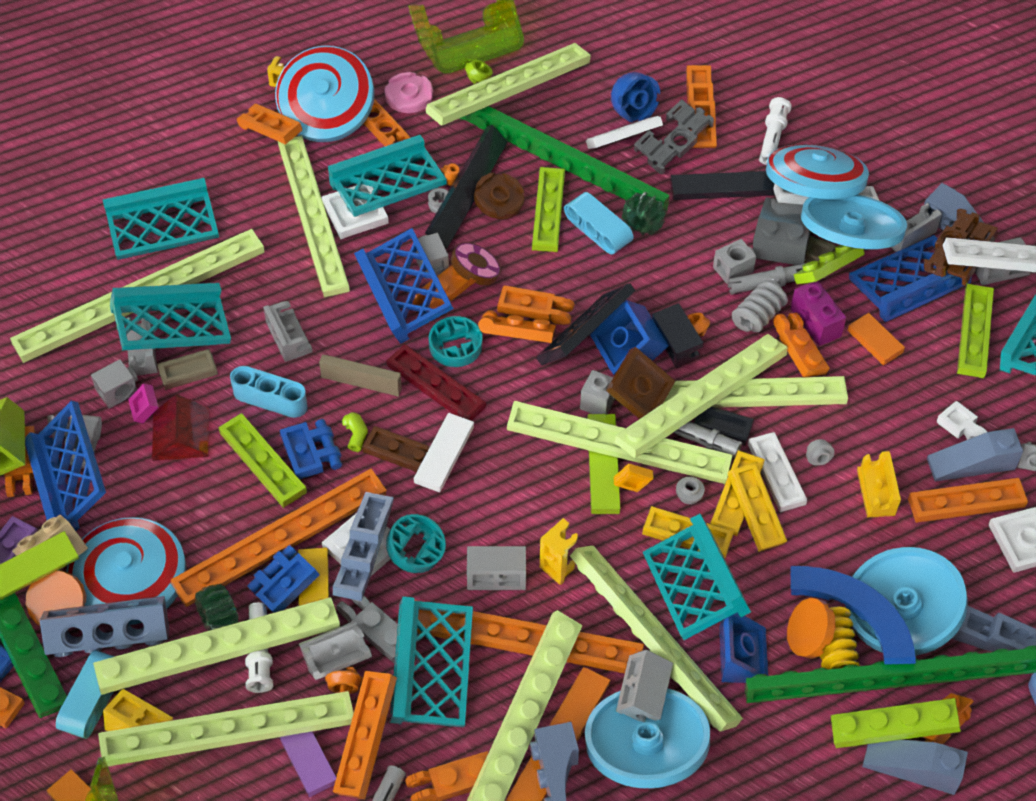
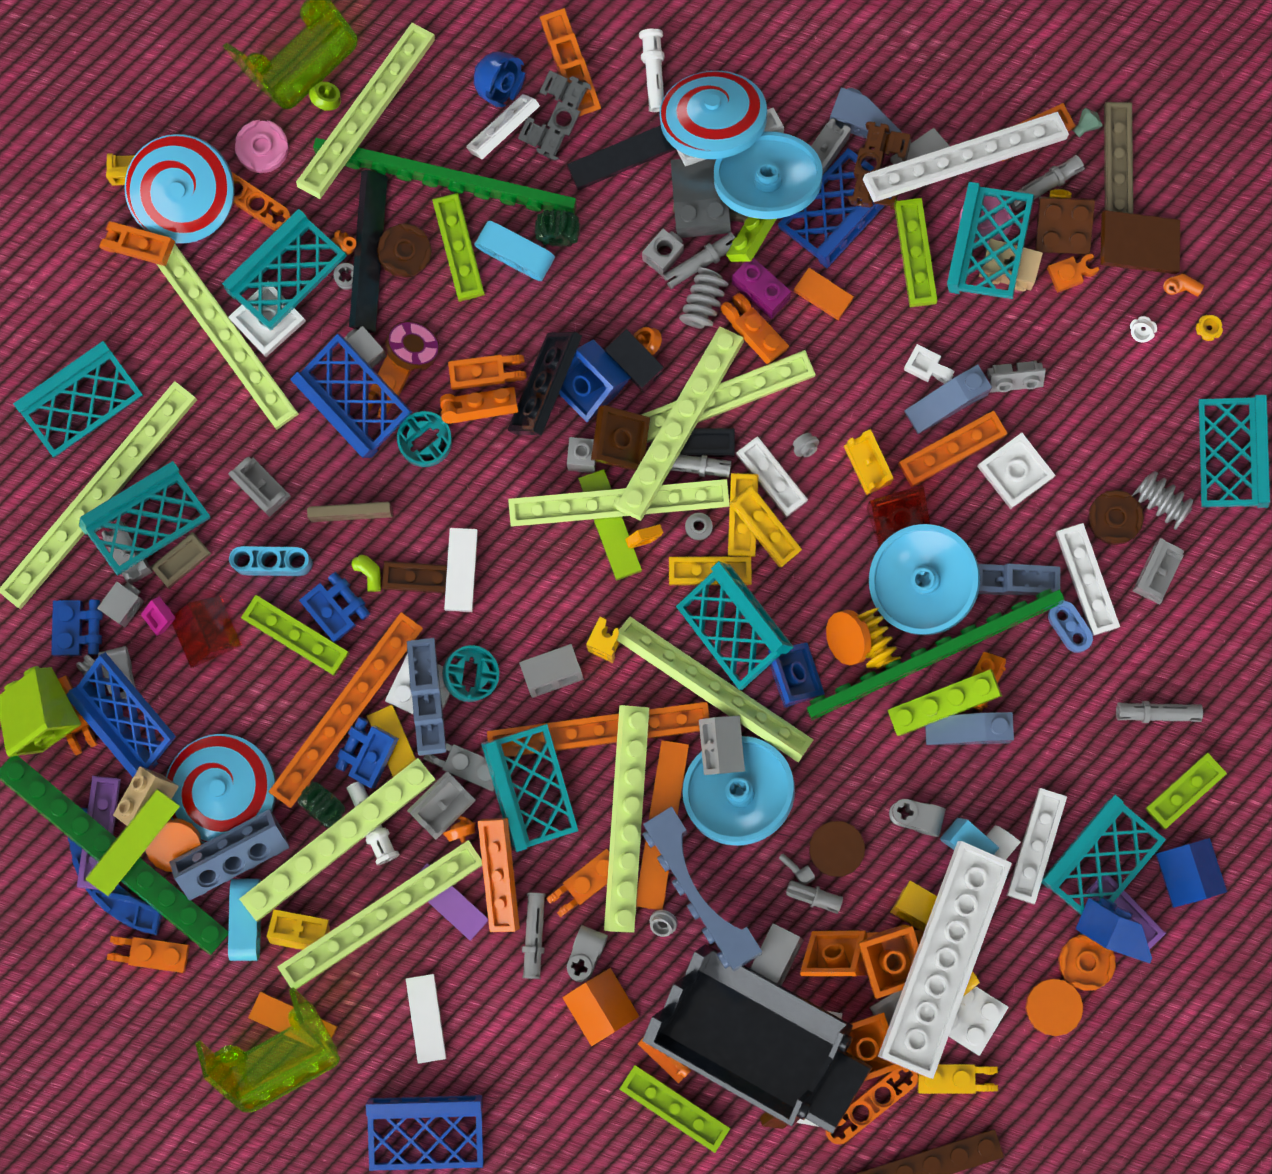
camera: 15 degrees left, 25 degrees up
(59, 387) = (67, 628): none -> blue plate
(436, 383) = (423, 492): dark red tile -> none
(864, 602) = (886, 594): blue tile -> none
(895, 529) = (897, 512): none -> clear red slope

